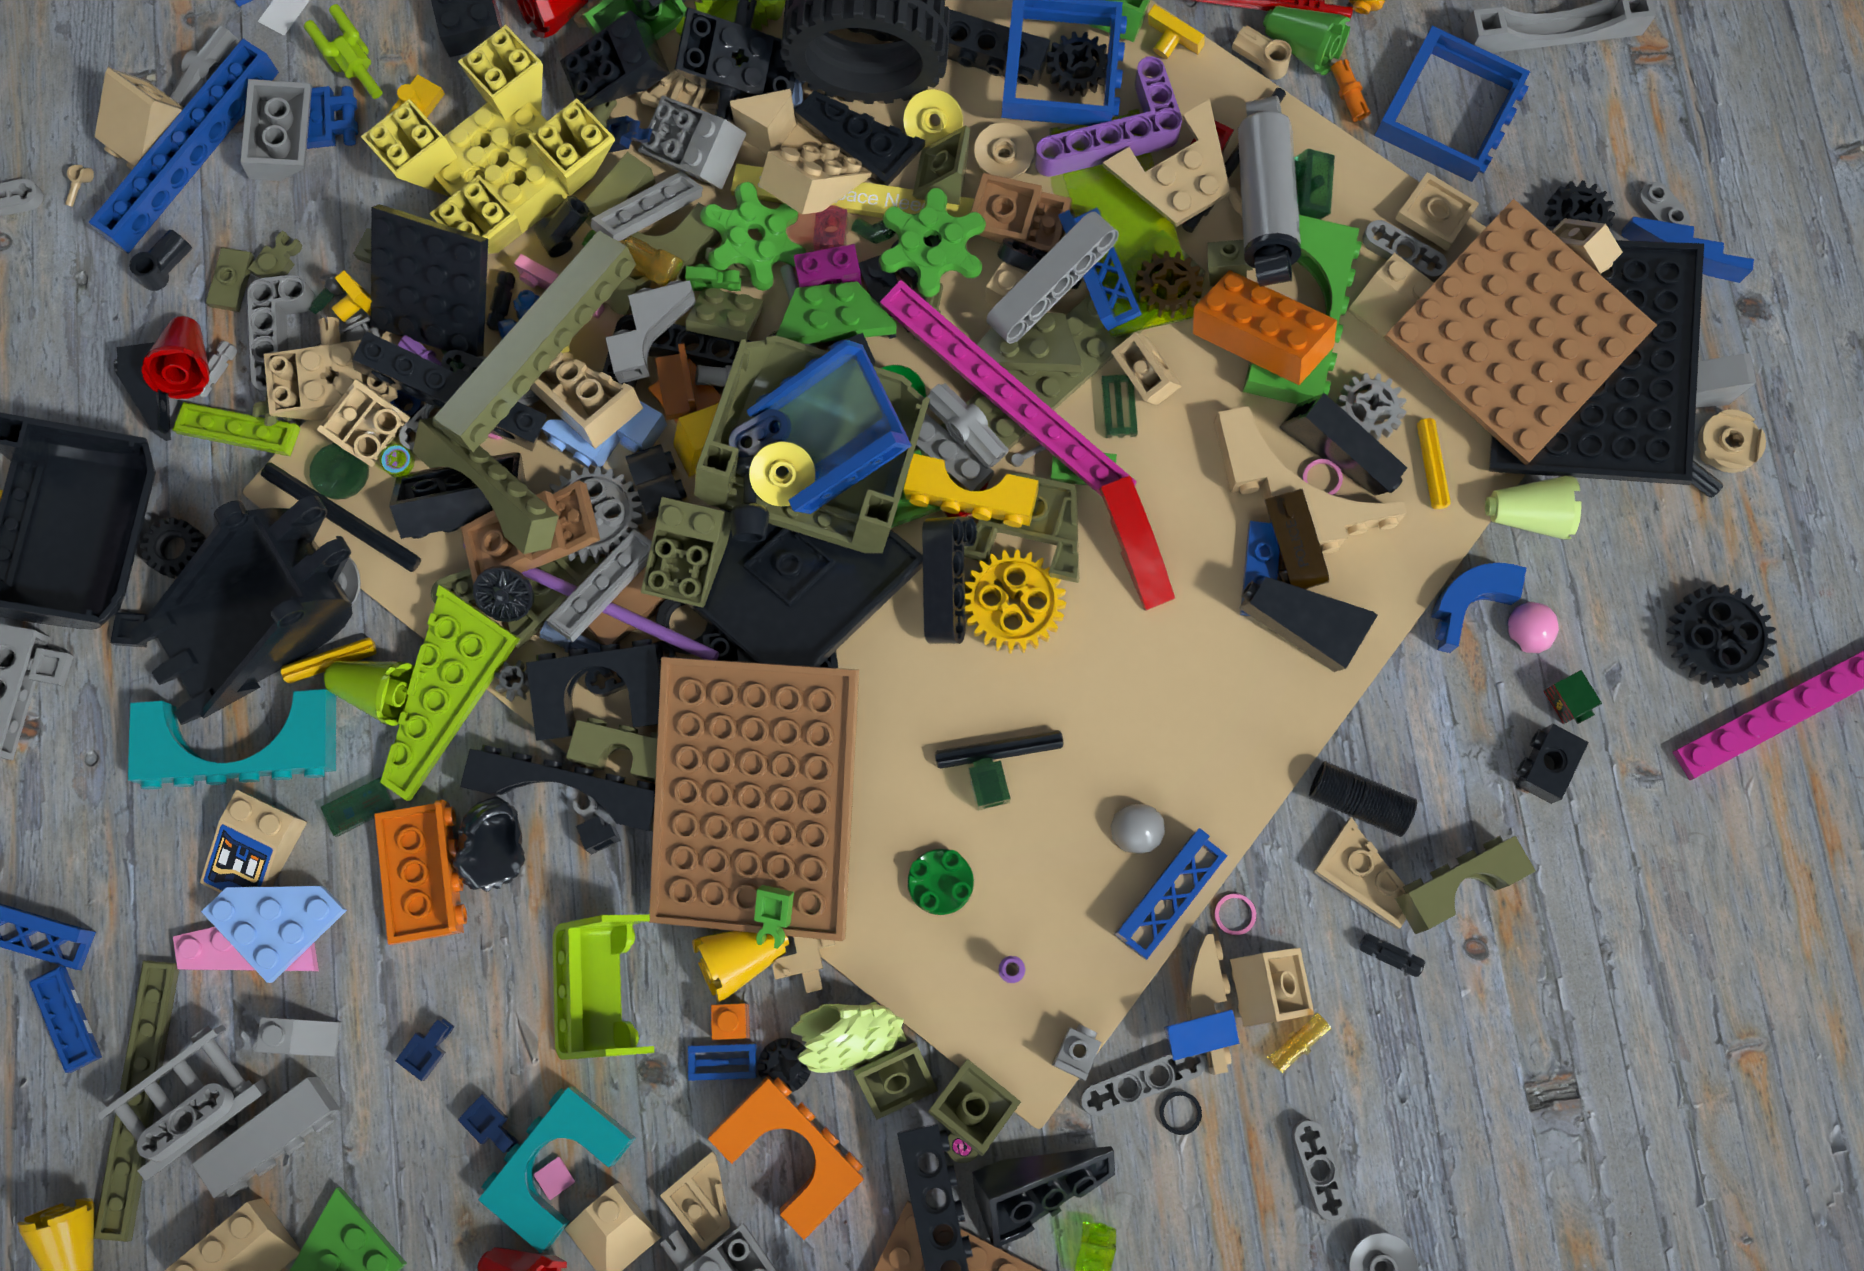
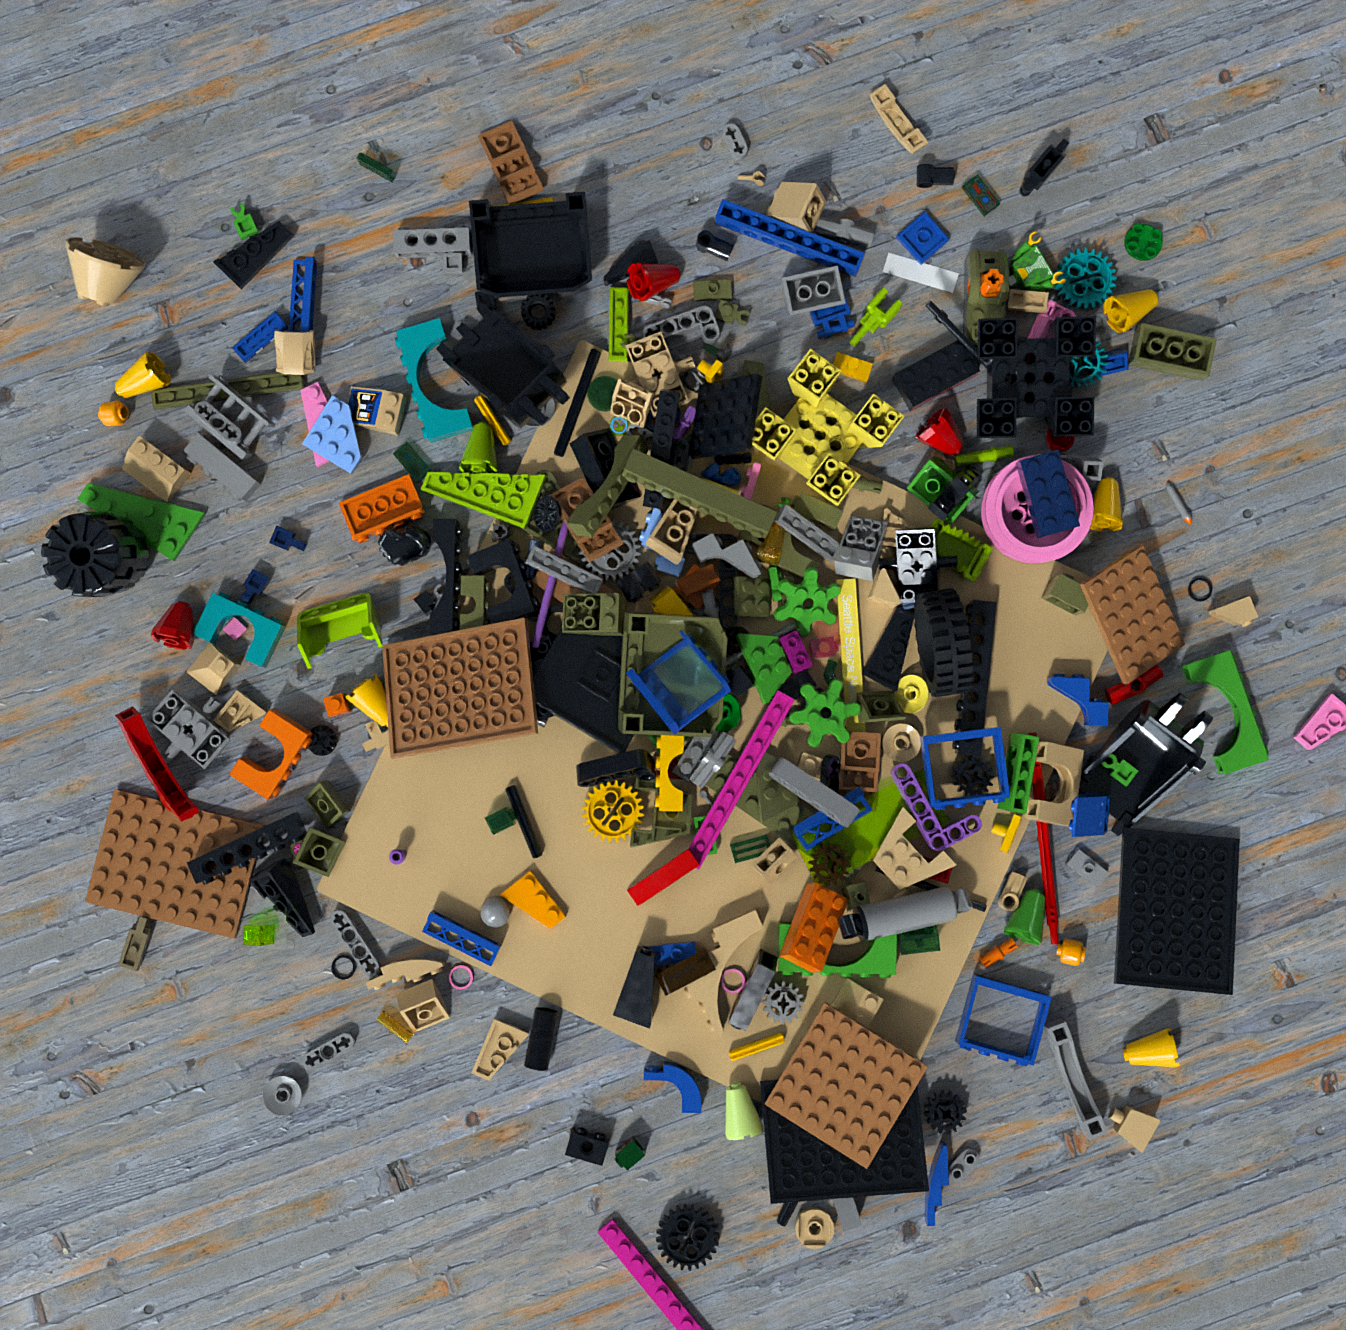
camera: 75 degrees right, 10 degrees up
(107, 961) = (295, 352): none -> tan slope
(298, 1037) = (278, 468): light grey slope -> none
(557, 230) = (784, 482): black piece -> none
(615, 62) = (901, 487): black slope -> none
(624, 131) = (858, 502): dark blue plate -> none
(693, 1063) = (308, 706): blue tile -> none
(748, 519) = (617, 648): black piece -> none
(760, 431) = (671, 641): dark blue plate -> none
(774, 911) = (397, 716): bright green plate -> none
(778, 489) = (640, 660): light yellow dish -> none
(811, 176) = (852, 629): tan slope -> none
(847, 1035) = (342, 773): yellowish green head -> none
(940, 881) = (439, 805): green dish -> none
(1068, 1061) = (368, 899): light grey brick -> none
(1131, 760) = (534, 900): none -> light orange wing
(1202, 1034) = (384, 970): blue slope -> none
(1392, 955) = (456, 1071): black axle -> none
(1401, 238) = (893, 1021): light grey beam -> none
(1434, 901) = (488, 1088): olive arch -> none
(1437, 211) = (923, 1021): tan plate -> none
(1533, 627) = (669, 1123): bright pink hair -> none
(1589, 241) = (913, 1116): tan slope -> none

